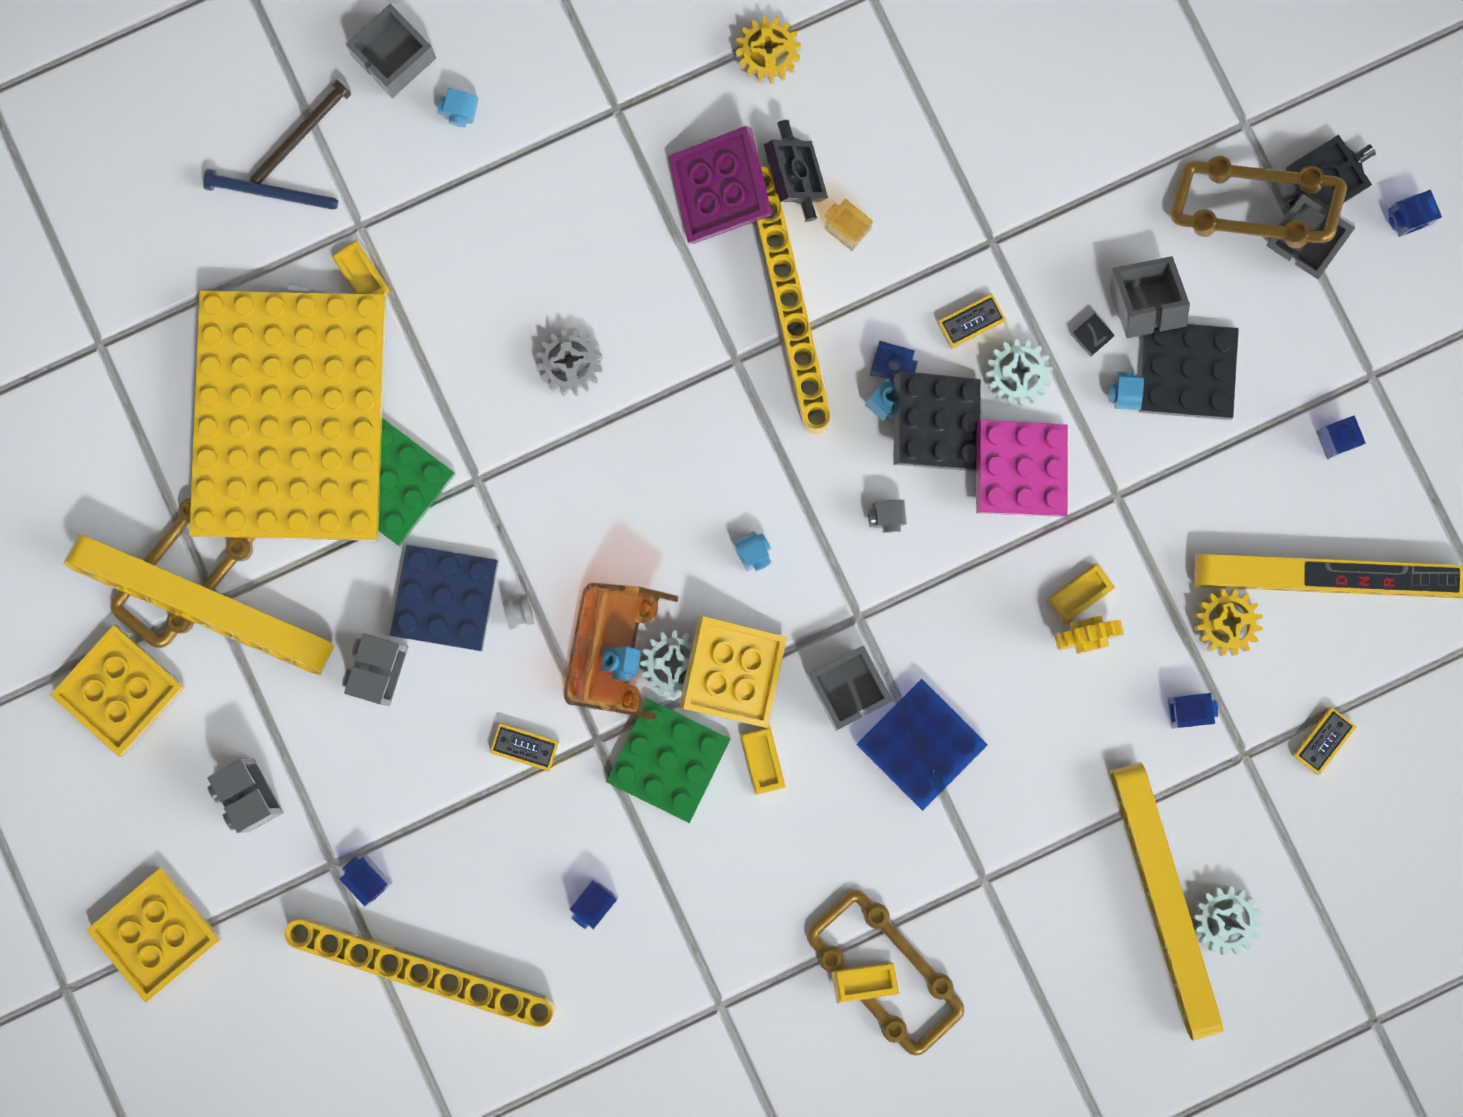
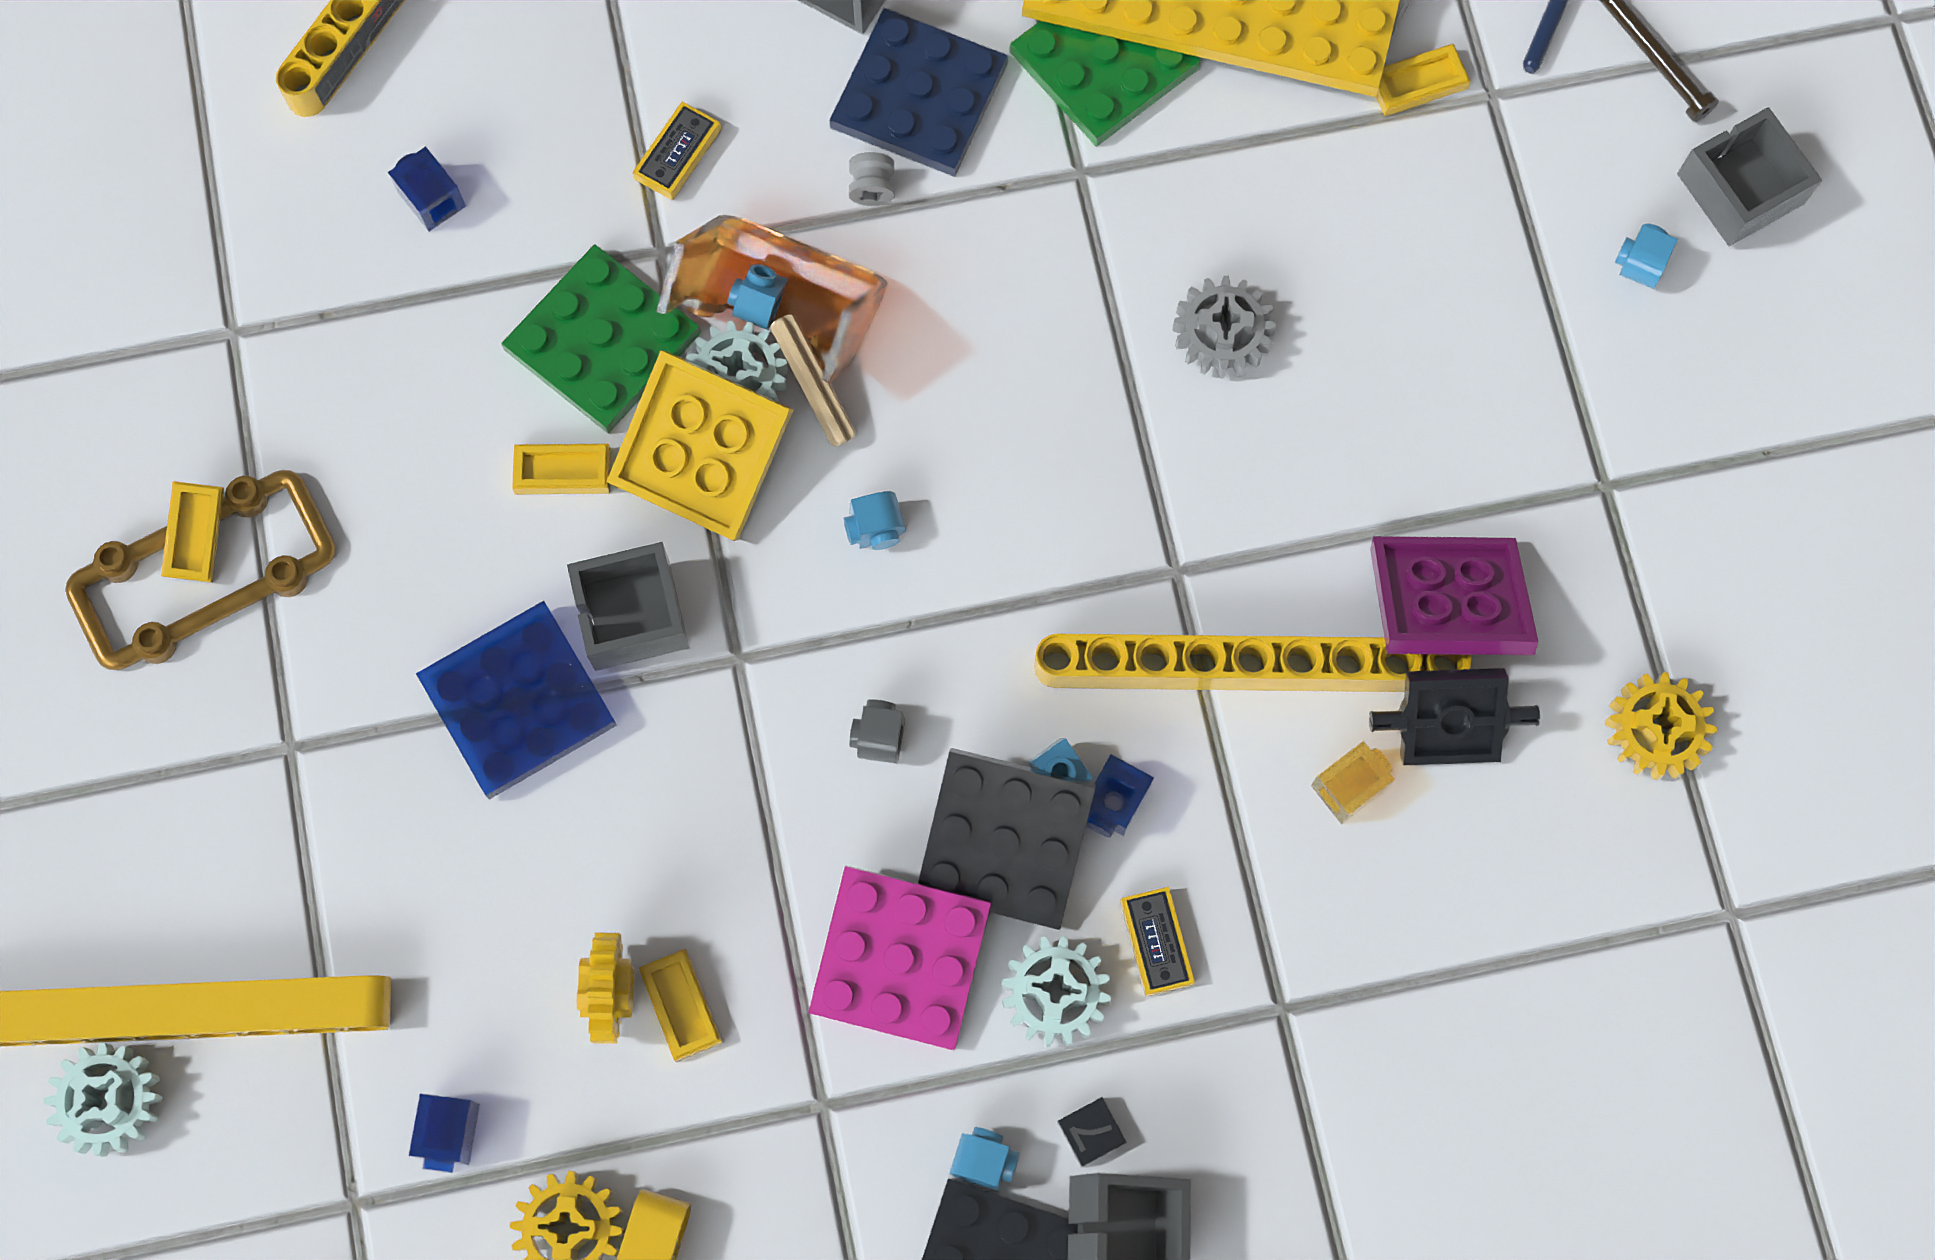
camera: 105 degrees right, 10 degrees down
(669, 613) = (809, 373): none -> tan axle

